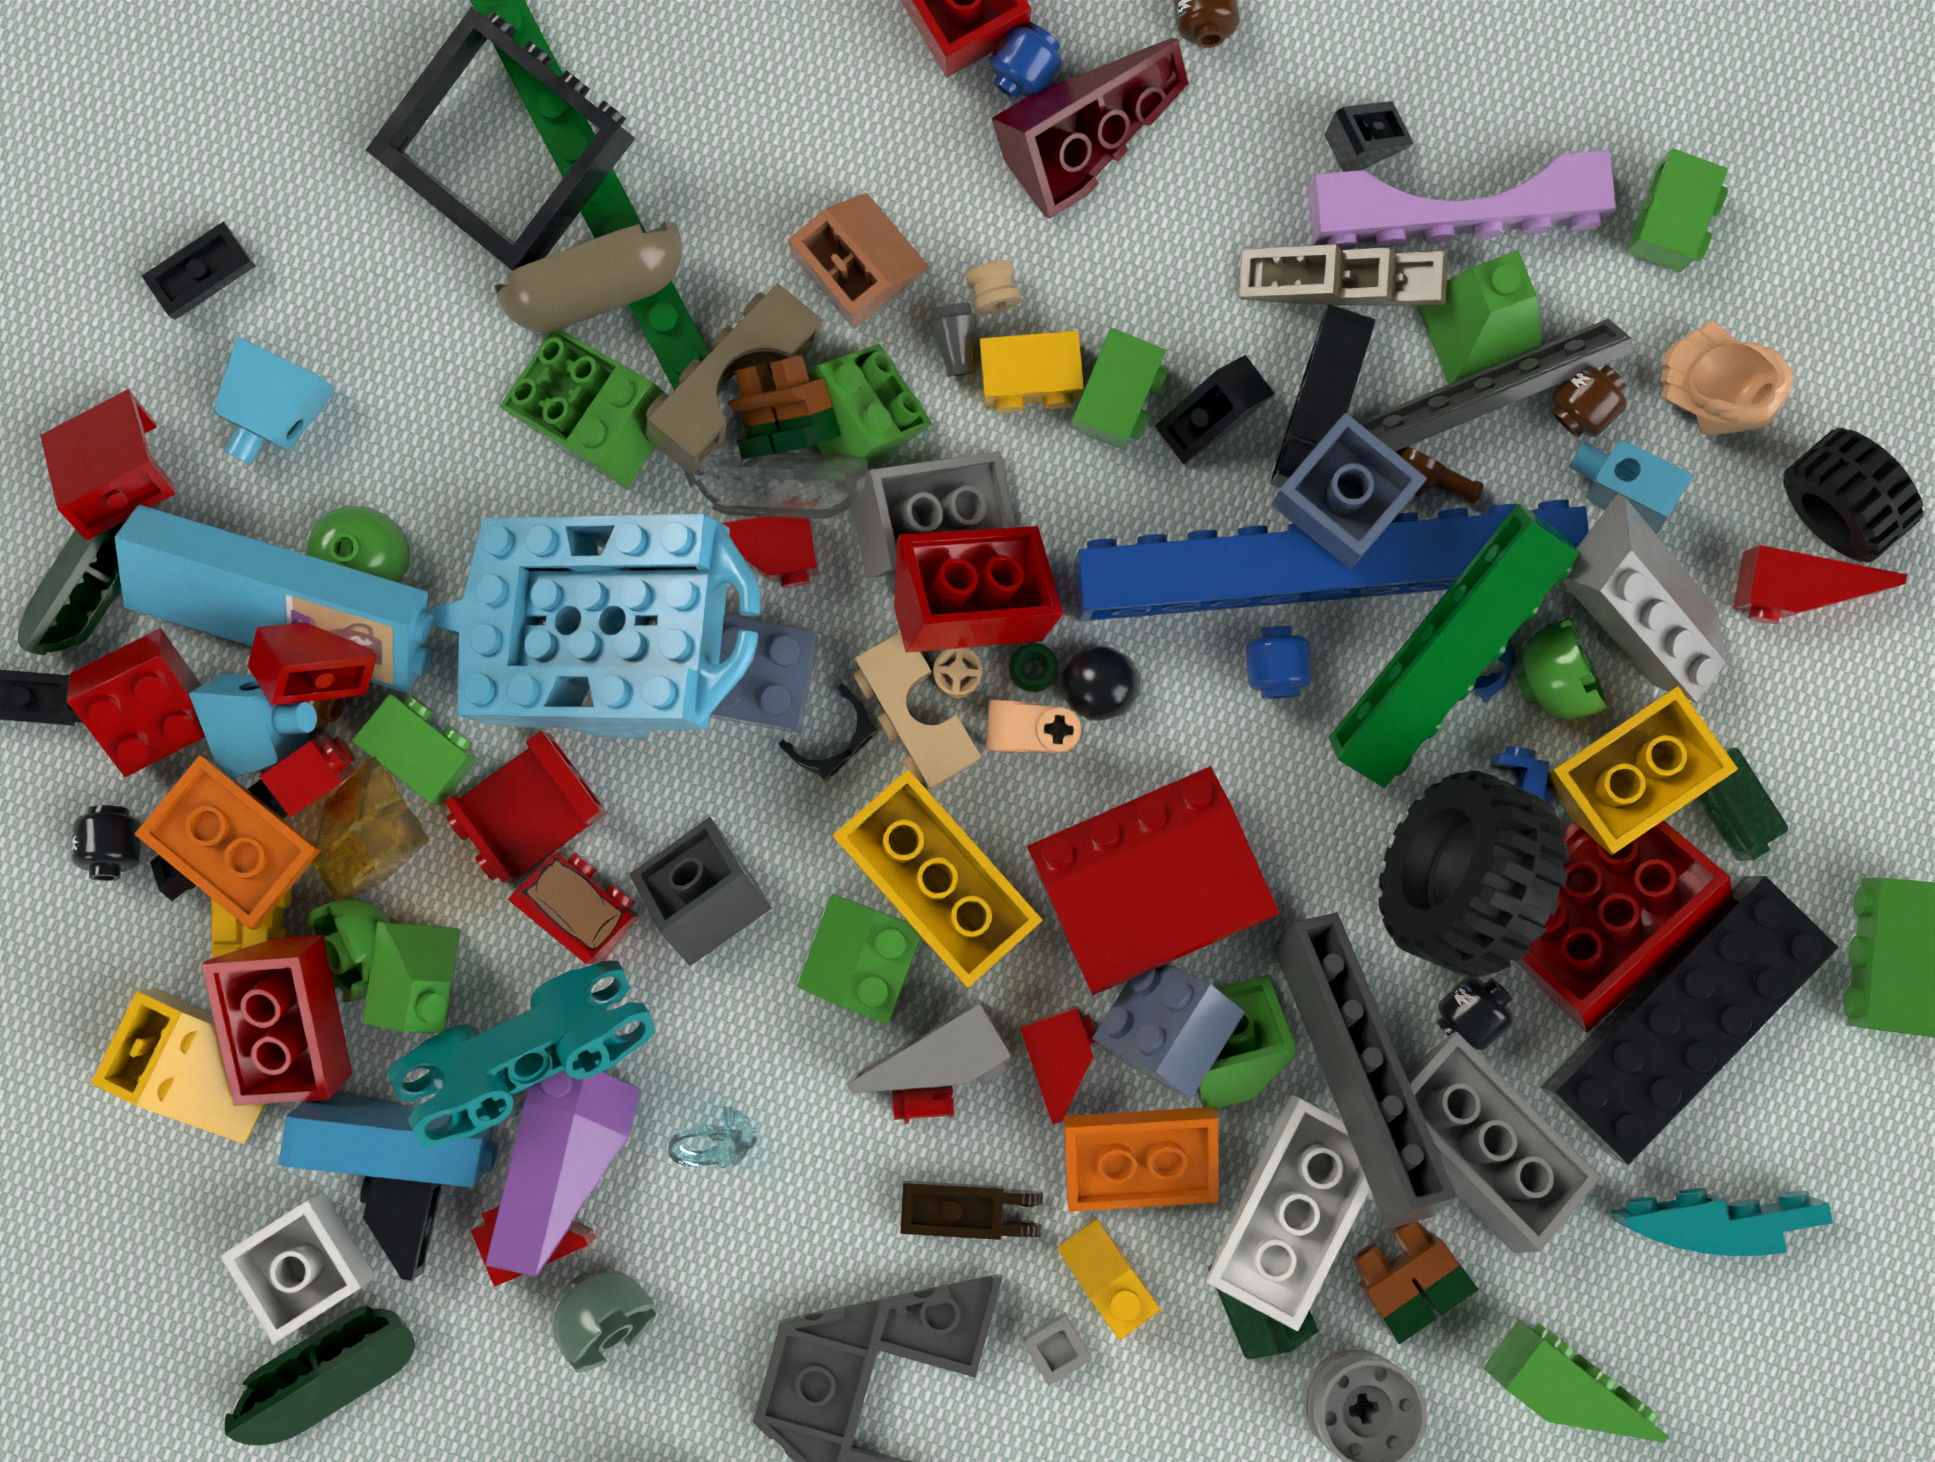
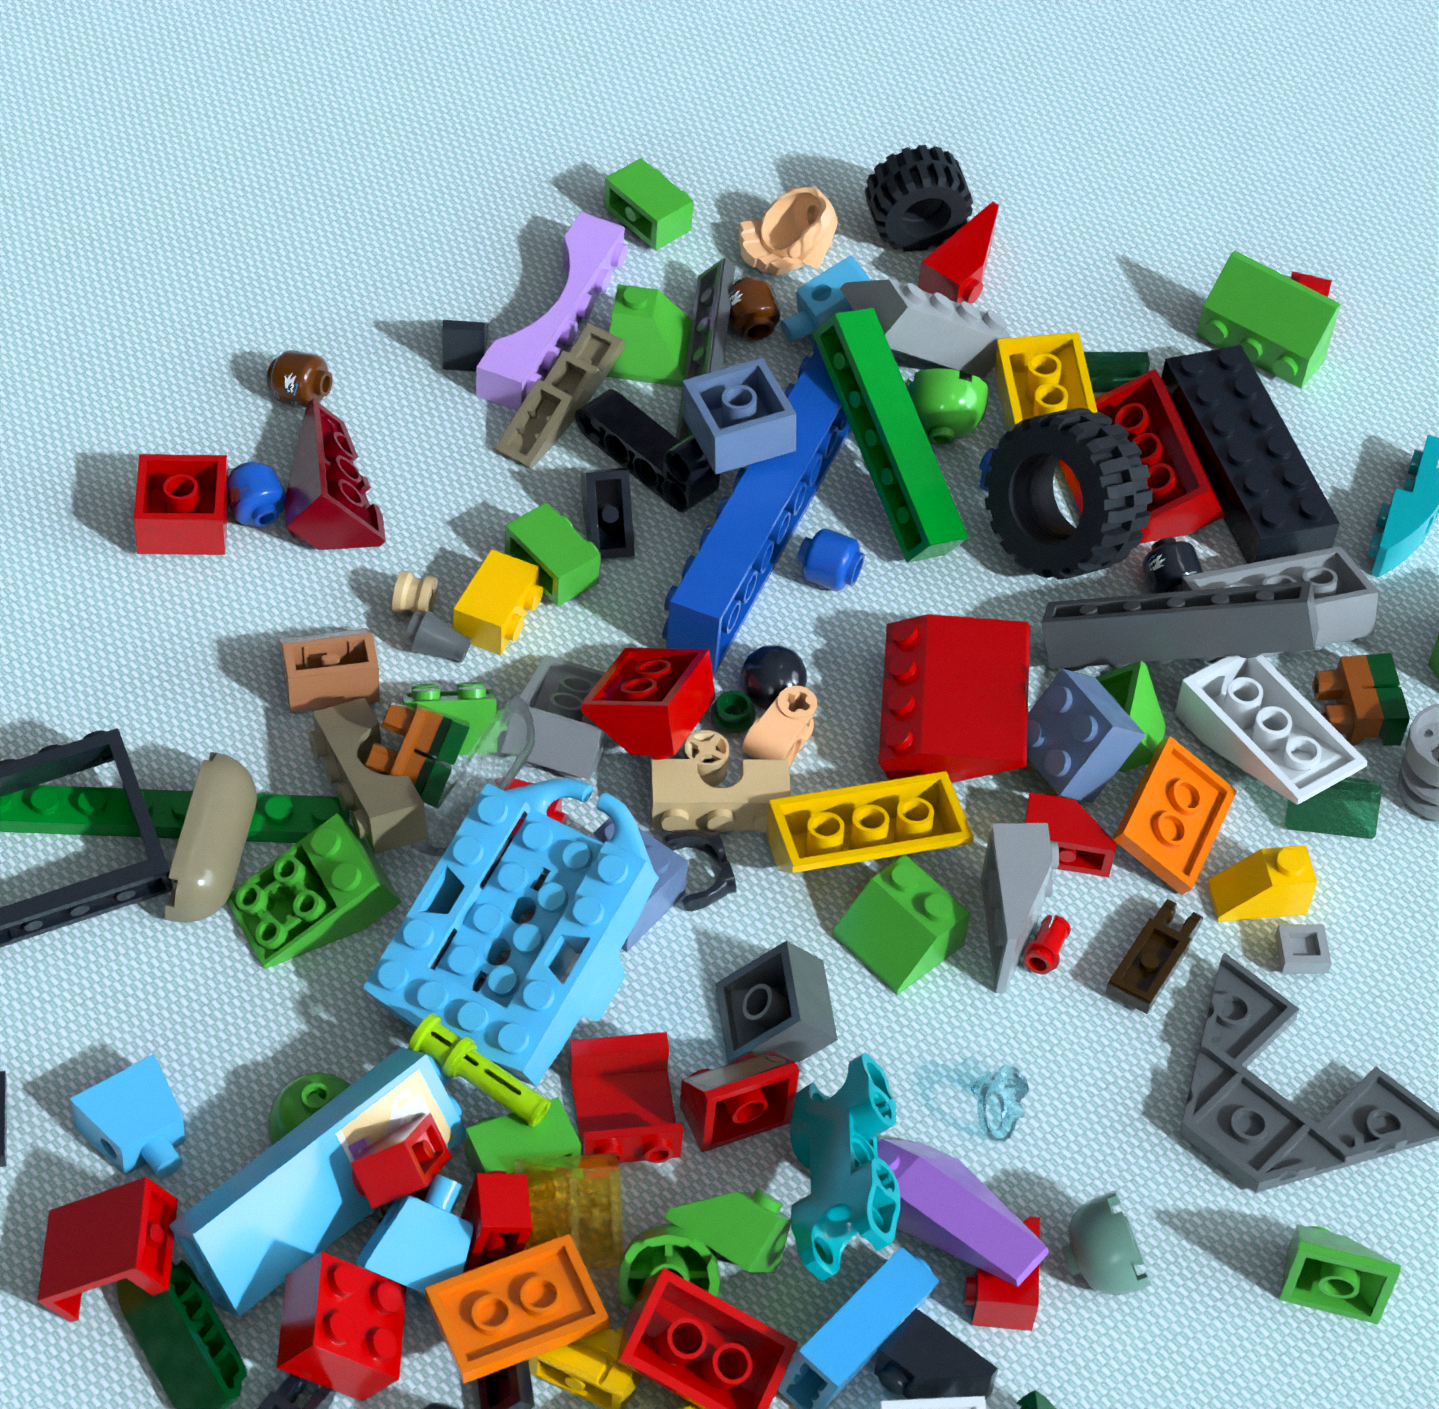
camera: 65 degrees left, 35 degrees down
(438, 652) = (460, 1058): none -> lime pin

